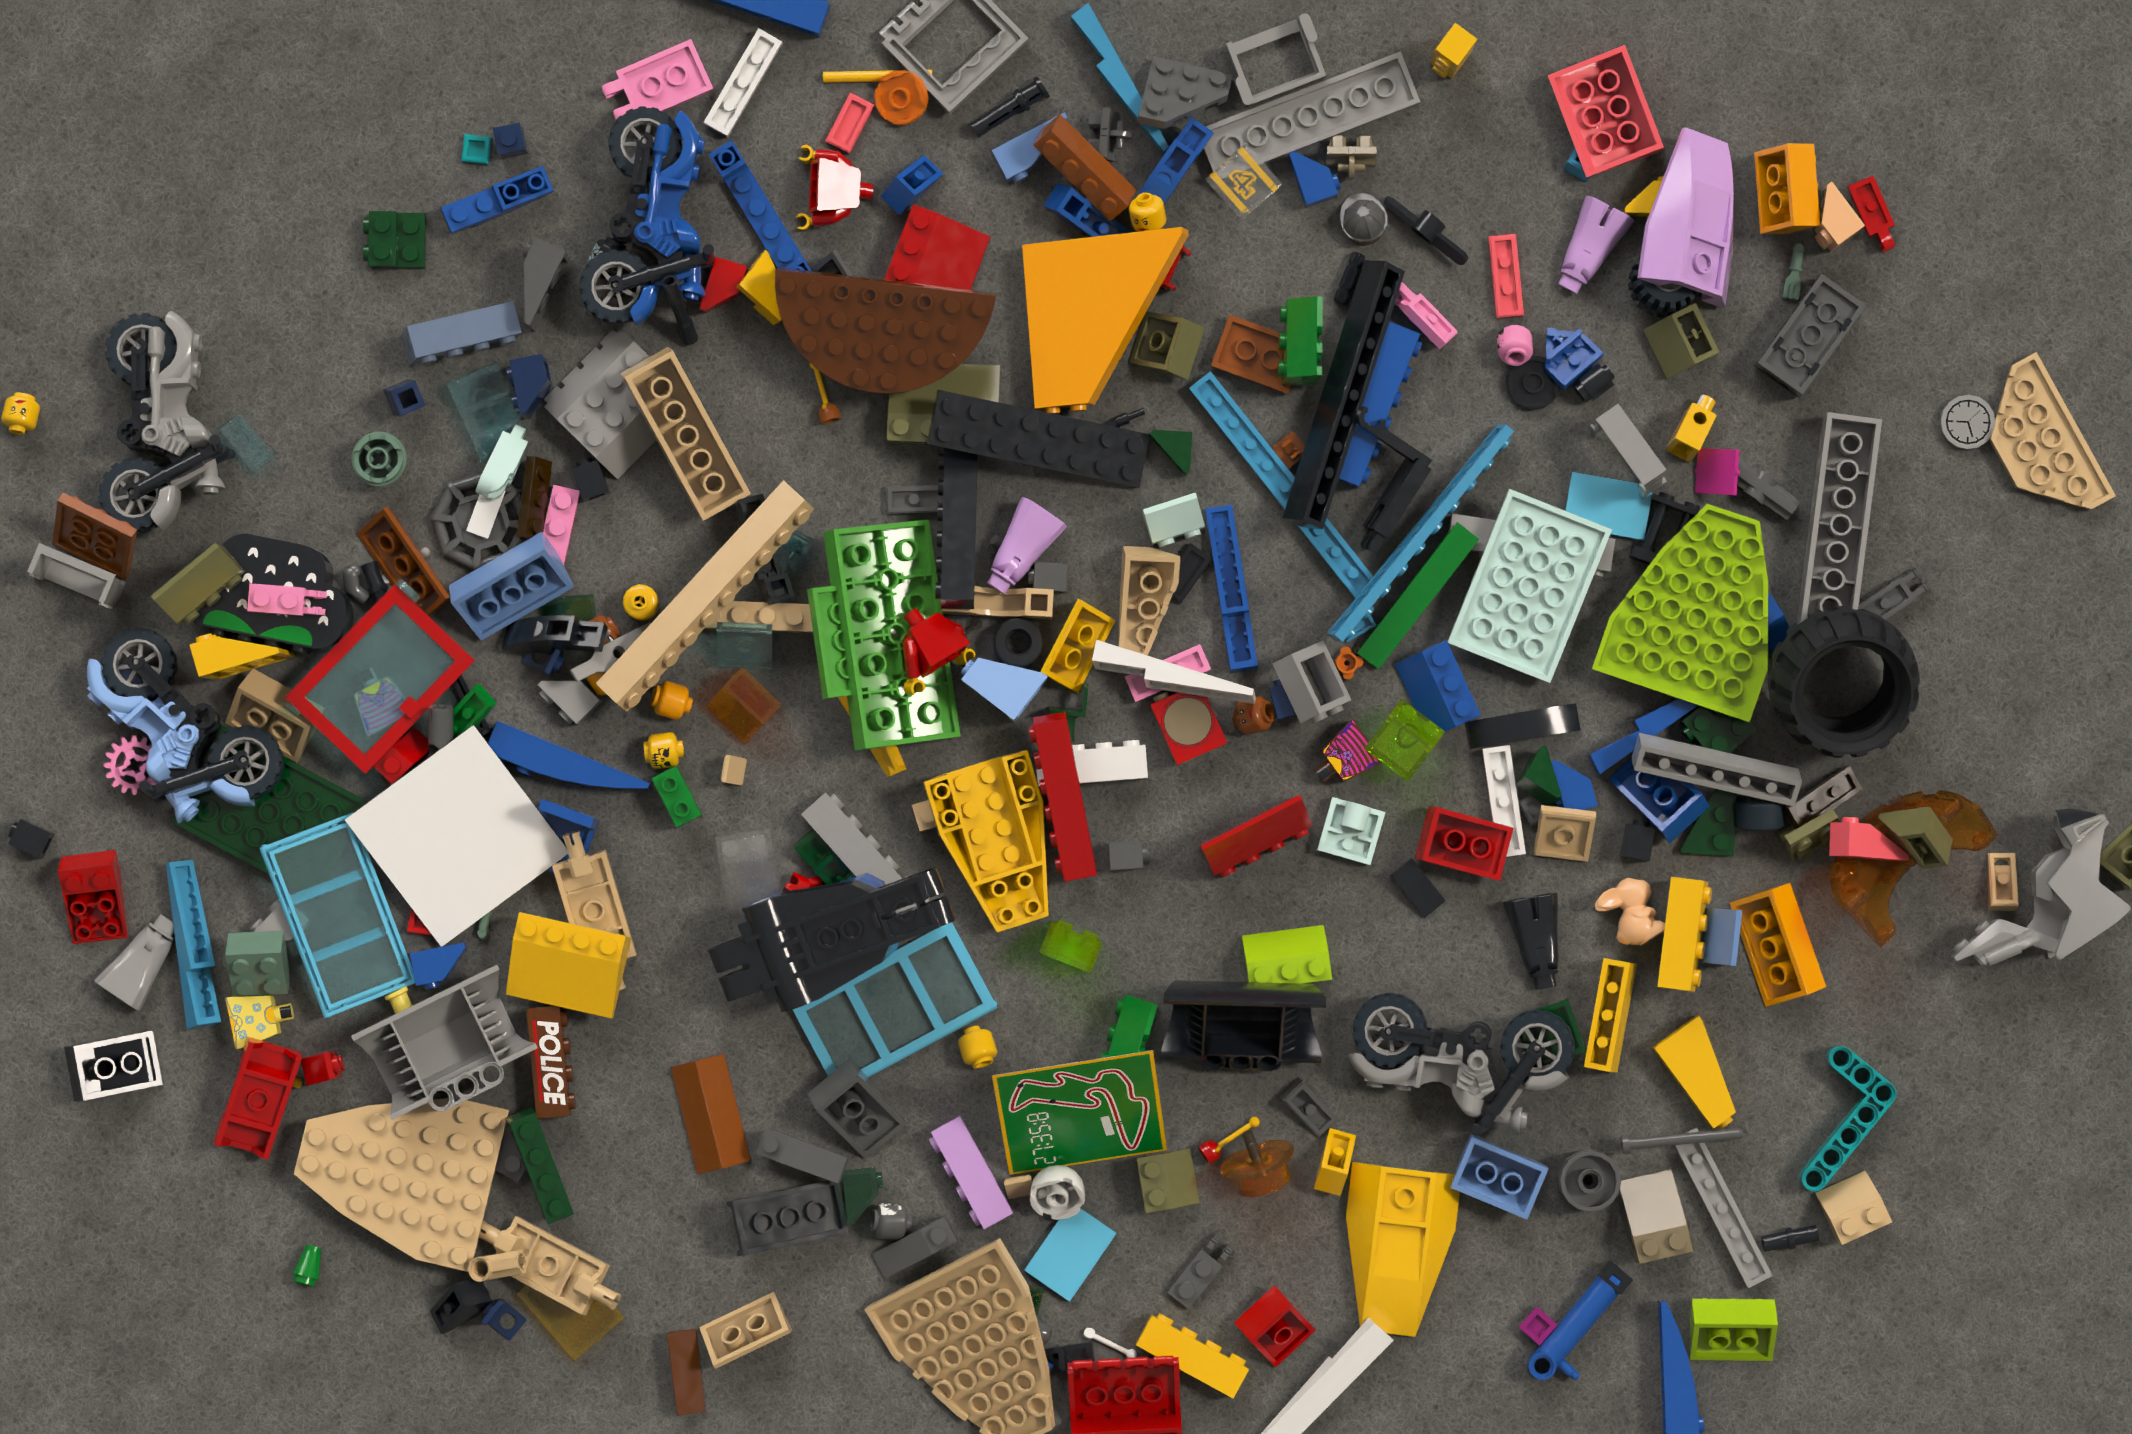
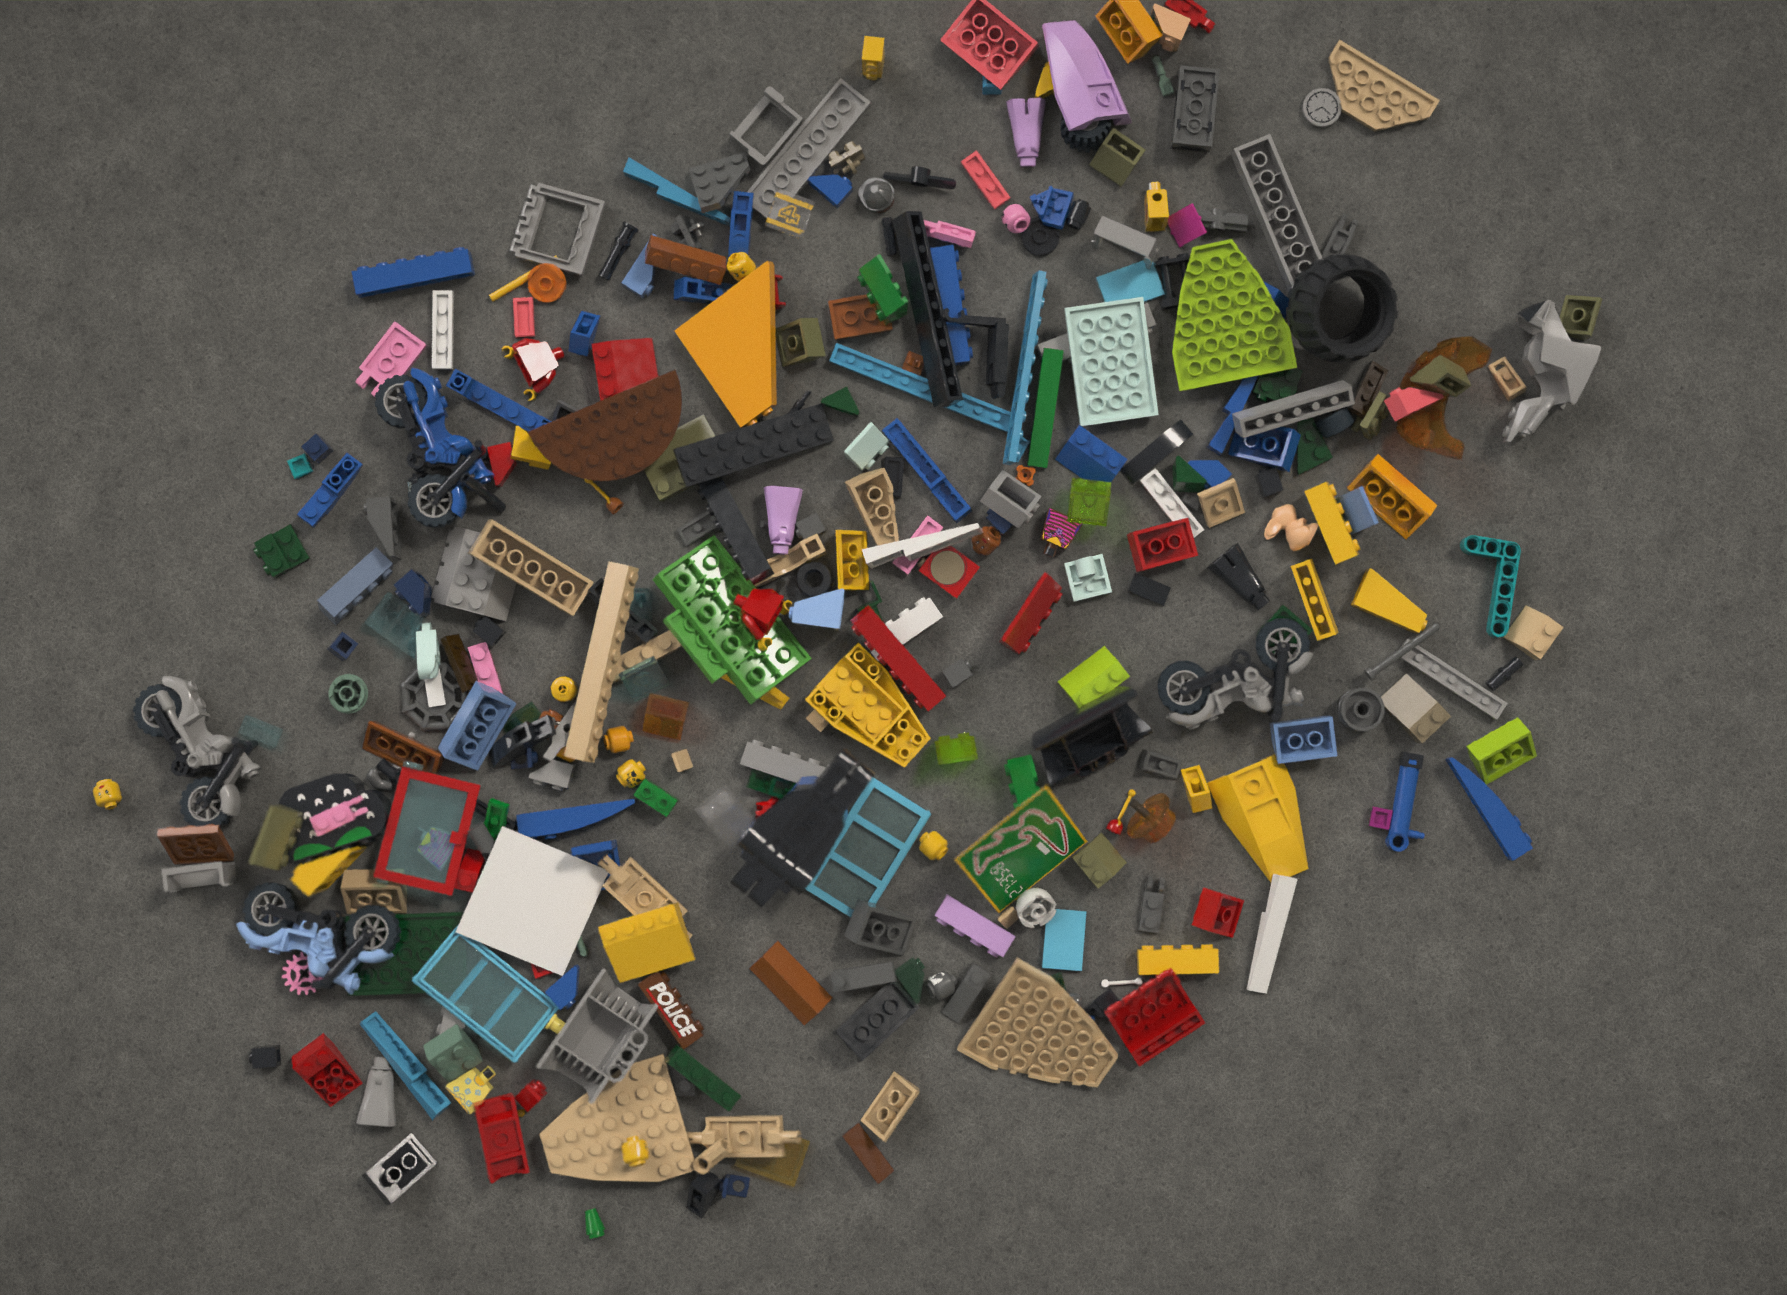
camera: 30 degrees left, 0 degrees up
(409, 1206) = (635, 1151): none -> yellow head

